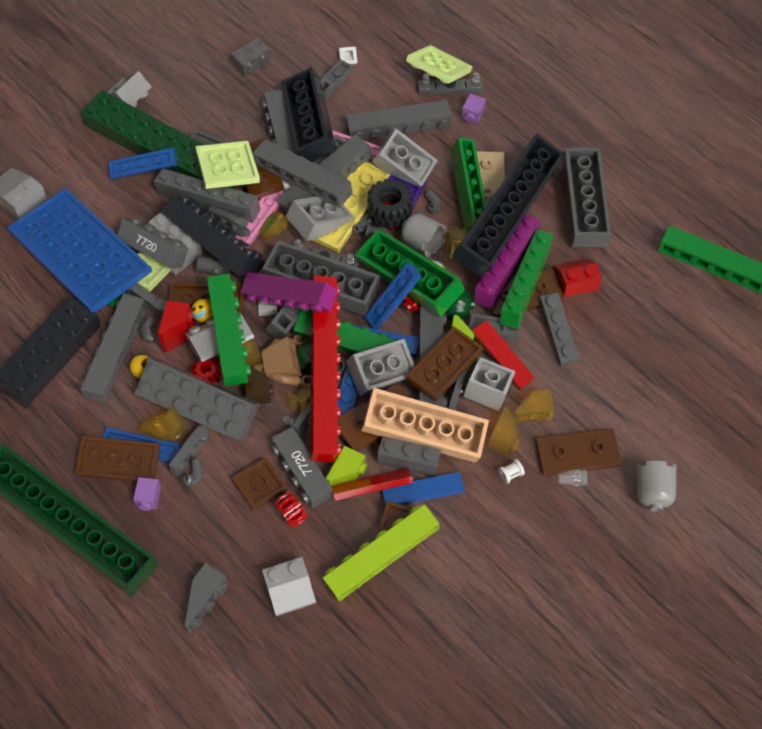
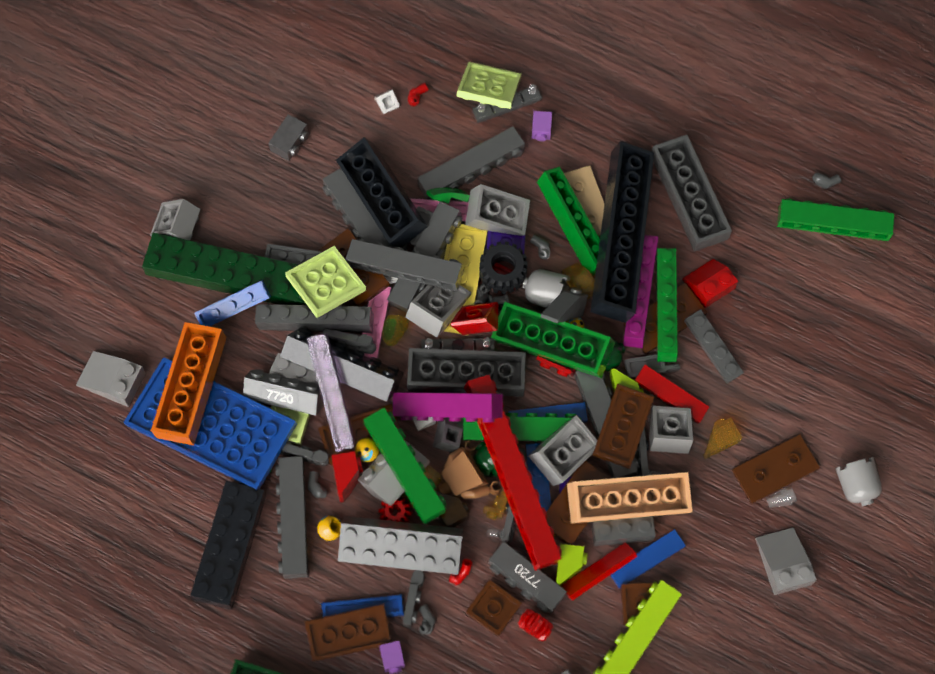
camera: 20 degrees left, 10 degrees up
(72, 209) = (188, 383): none -> orange brick
(163, 425) = (378, 583): clear yellow slope -> none
(191, 249) = (331, 392): none -> clear purple plate
(211, 265) = (352, 395): dark grey hinge -> none
(246, 444) = (463, 573): none -> red arm
(336, 77) = (386, 131): dark grey hinge -> none
(347, 236) = (476, 318): none -> red slope
(363, 132) = (444, 194): none -> green slope
(374, 56) = (414, 94): none -> red arm
(393, 296) = (548, 372): blue tile -> none
(433, 247) = (566, 306): none -> dark grey slope
(505, 434) = (703, 475): clear yellow slope -> none
(511, 471) = (722, 511): white bush -> none
(556, 536) = (785, 561): none -> light grey slope
(716, 227) = (824, 181): none -> dark grey arm

